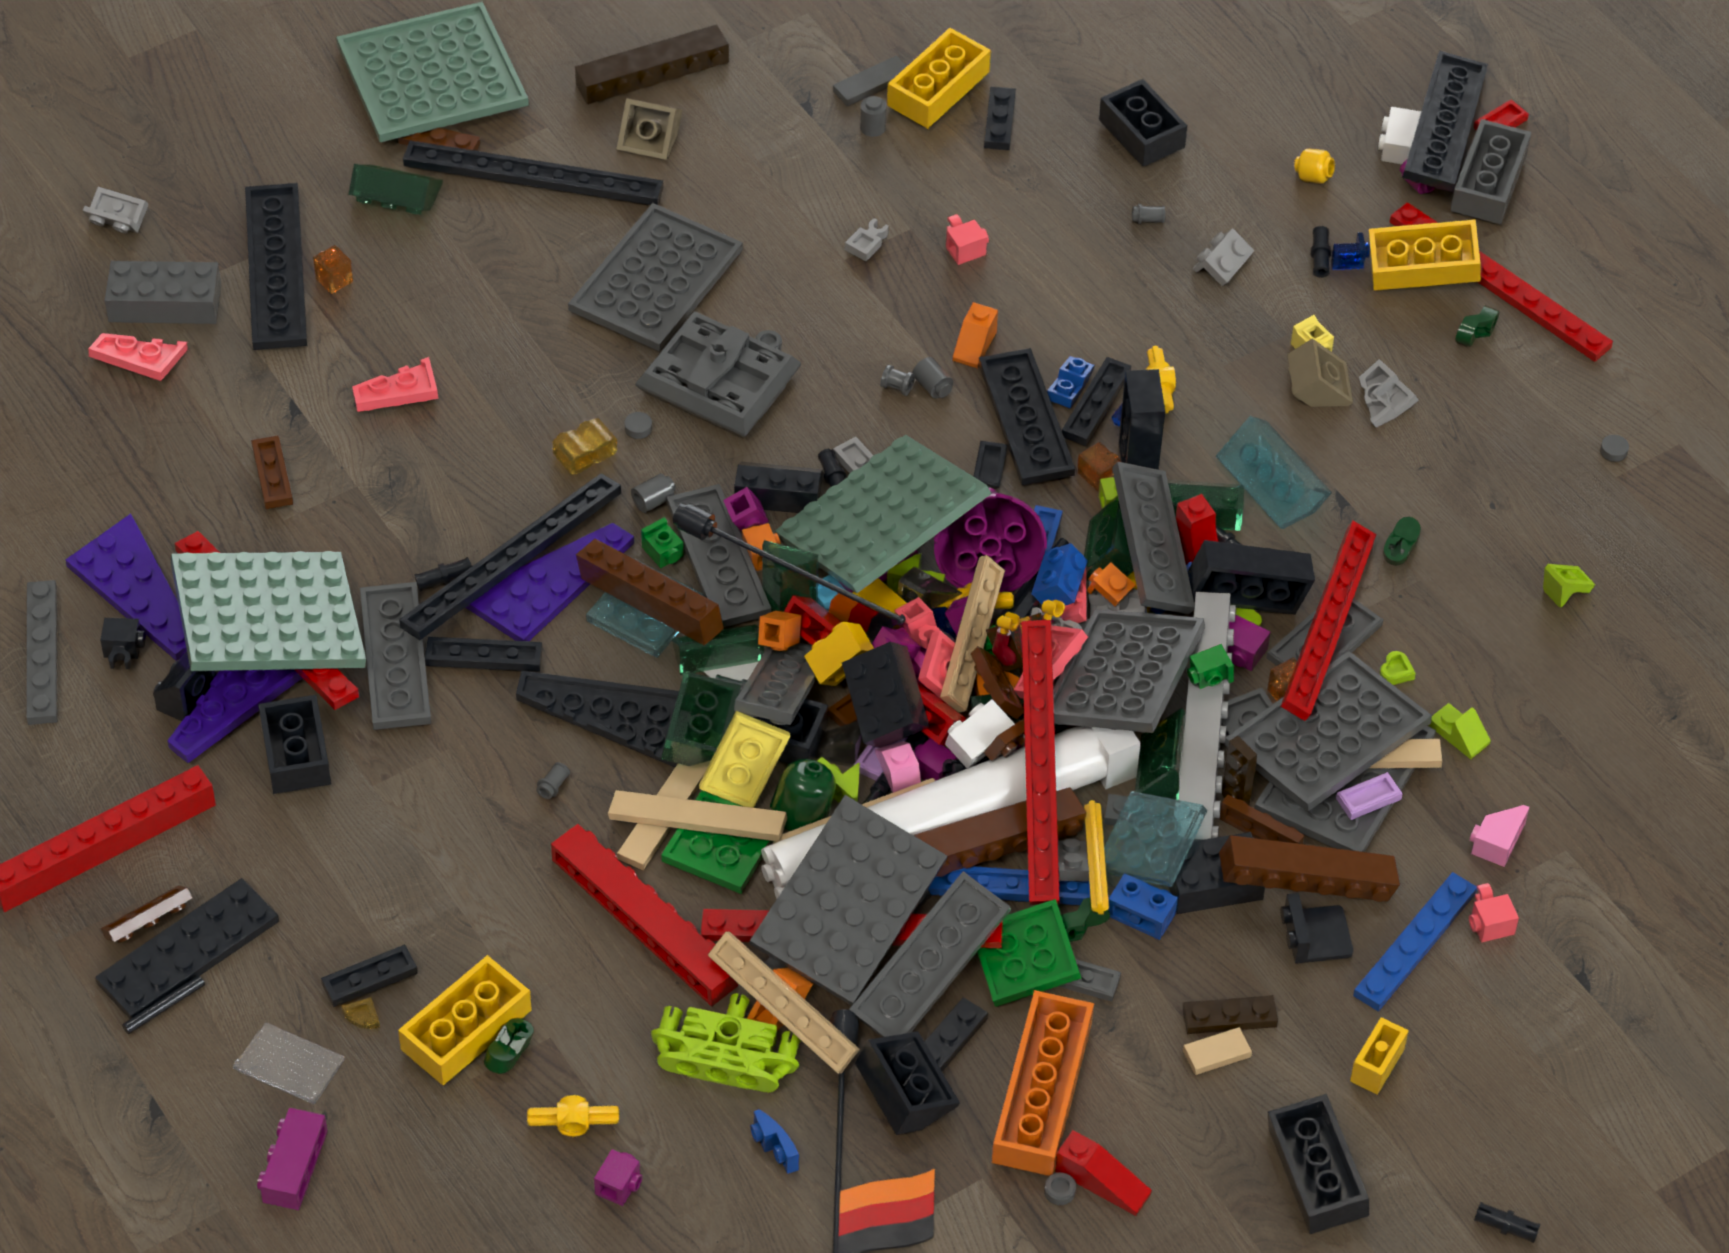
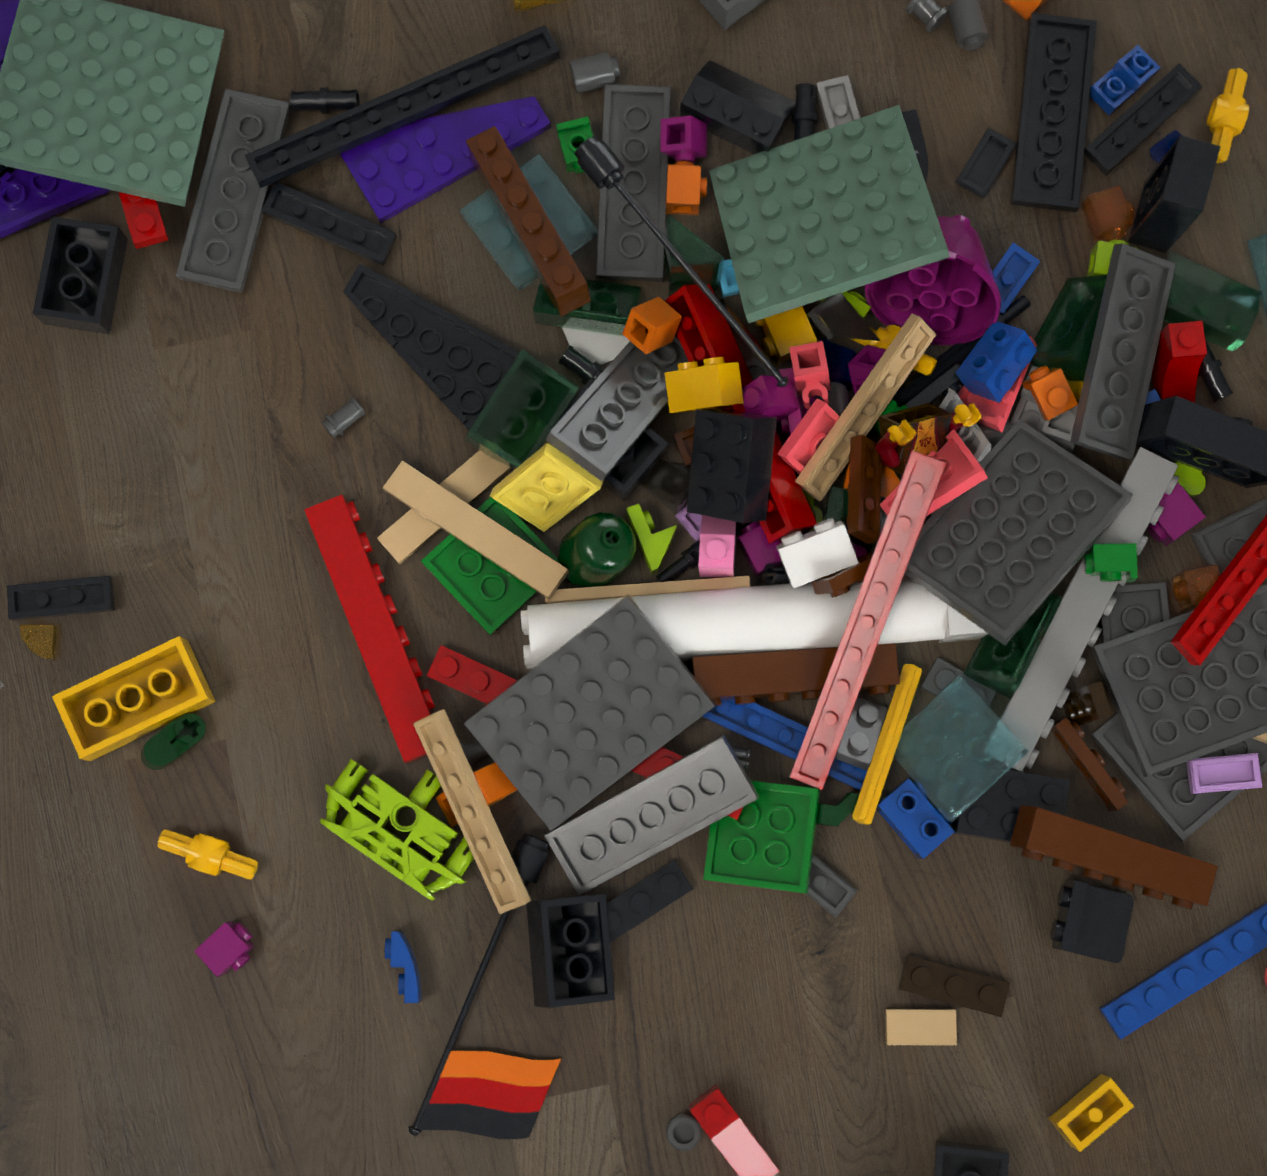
camera: 20 degrees right, 30 degrees up
(1042, 1083) = (713, 1009): orange brick -> none

